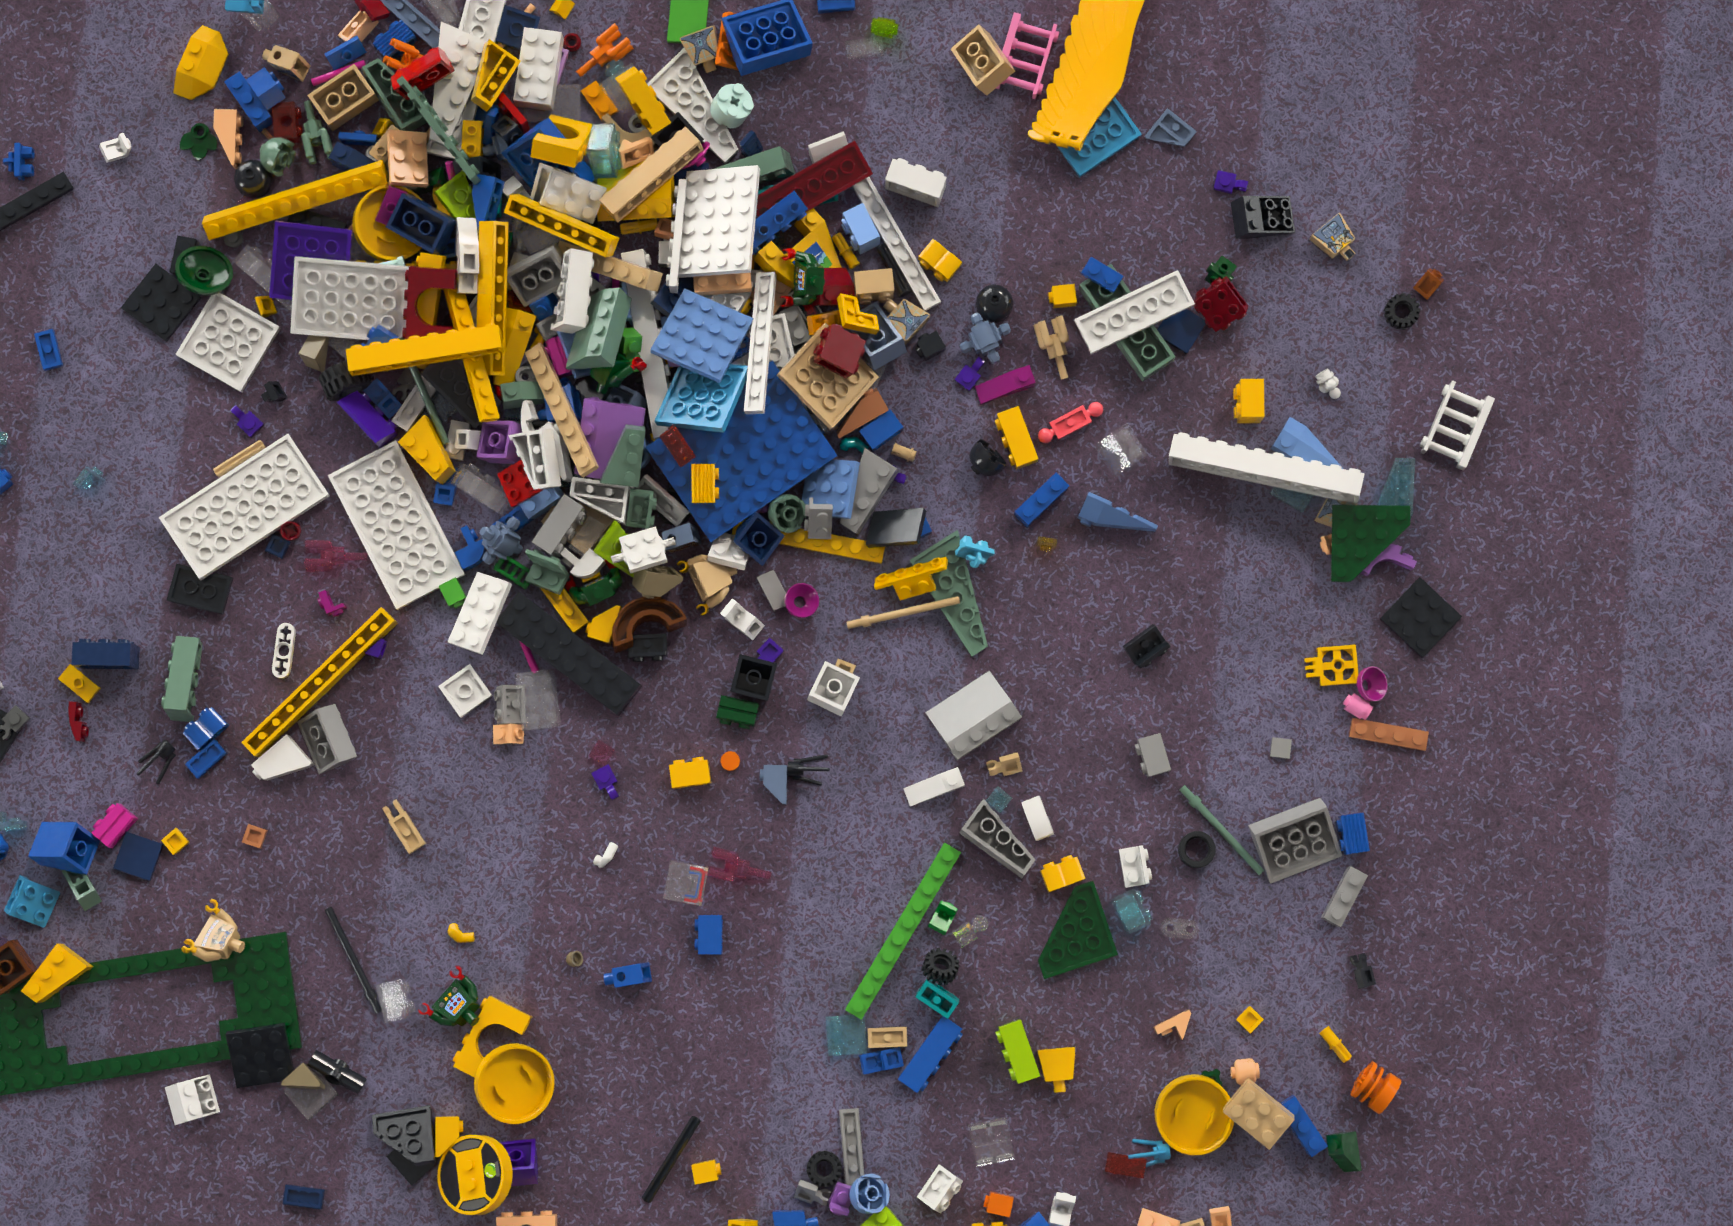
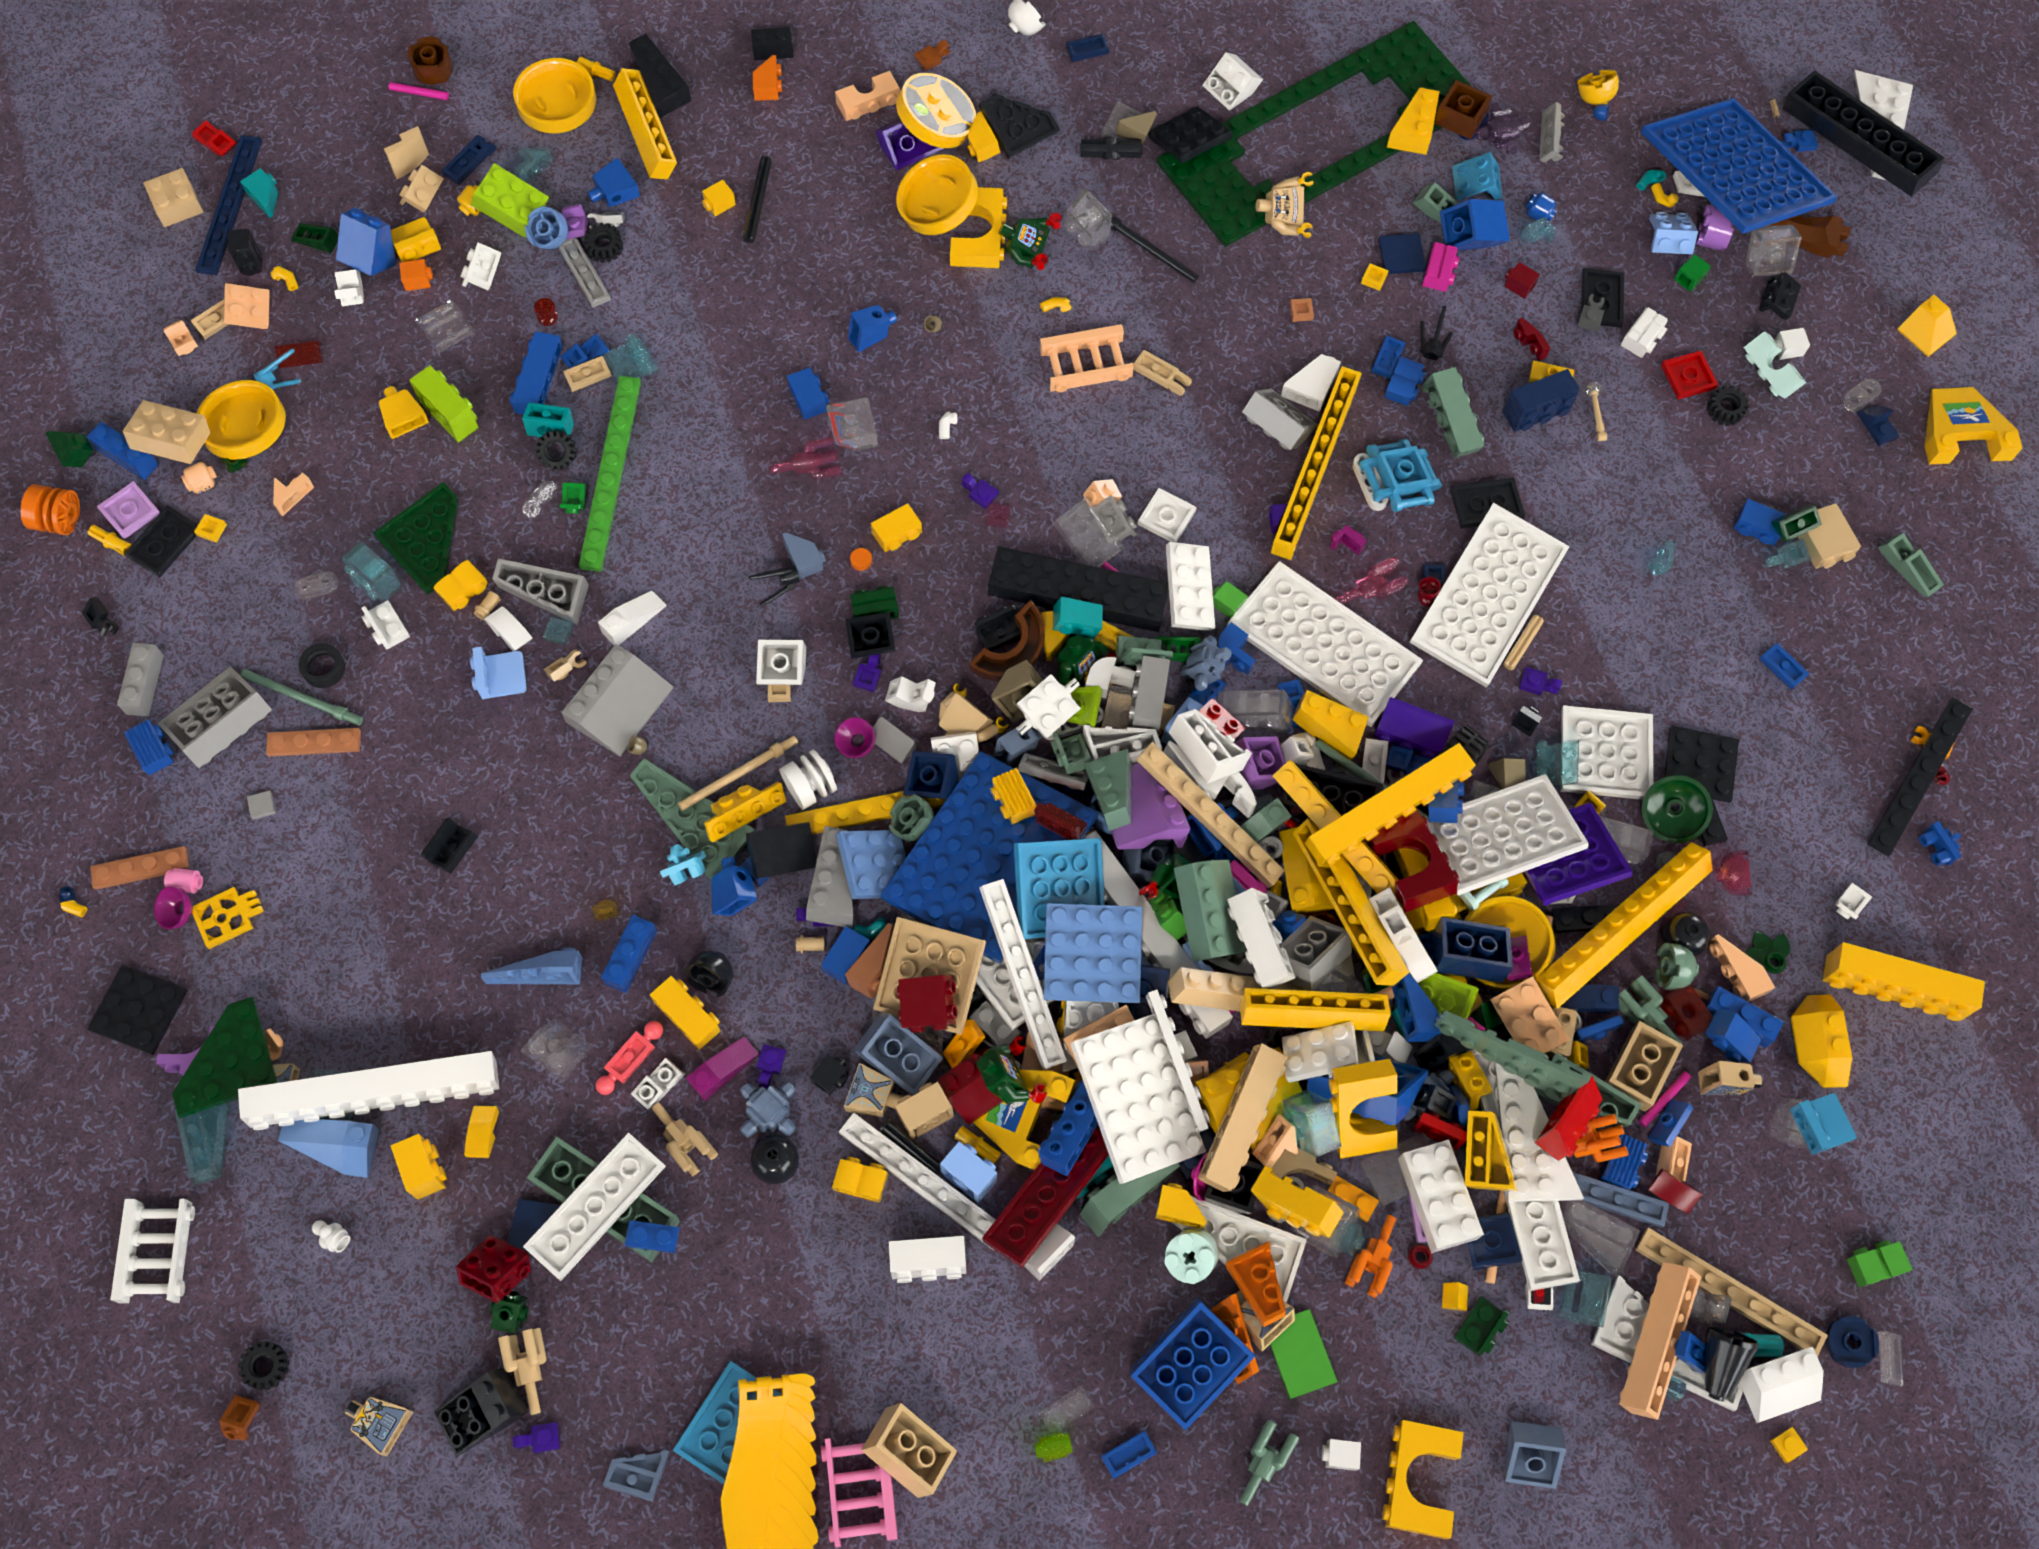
camera: 150 degrees right, 15 degrees down
(52, 782) = (1521, 279): none -> dark red brick
(54, 651) = (1593, 390): none -> tan piece
(119, 72) = (1903, 982): none -> yellow brick
(189, 205) = (1735, 873): none -> clear pink cylinder
(256, 642) = (1403, 473): none -> dark azure brick
(273, 345) = (1558, 762): none -> clear light blue hinge
(448, 880) = (1081, 340): none -> light nougat fence
(583, 621) = (1077, 617): none -> teal brick
(695, 65) = (1257, 1280): none -> orange wing
(725, 141) = (1179, 1207): none -> yellow slope
(750, 145) = (1144, 1217): dark blue slope -> none
(819, 520) = (871, 819): light grey bracket -> none
(852, 317) = (927, 1050): yellow plate -> none
(852, 579) = (809, 778): none -> white wheel
(900, 1115) = (546, 312): none -> clear red wheel
(945, 515) = (732, 889): none -> blue torso
(973, 671) = (637, 745): none -> dark tan hinge
(1047, 847) = (487, 605): none -> tan pin
(1057, 395) = (657, 1085): none -> white slope
(1058, 780) = (498, 673): none -> light blue bracket
(1063, 296) = (694, 1201): yellow brick -> none
(1153, 755) = (402, 738): light grey brick -> none
(1197, 412) = (480, 1131): none -> yellow slope
(1221, 234) = (525, 1364): none -> tan plant
(1224, 785) = (313, 742): none -> nougat plate
(1292, 1025) = (162, 541): none -> black tile
(1312, 1066) = (128, 510): none -> lavender plate
(1450, 726) = (69, 904): none -> arm

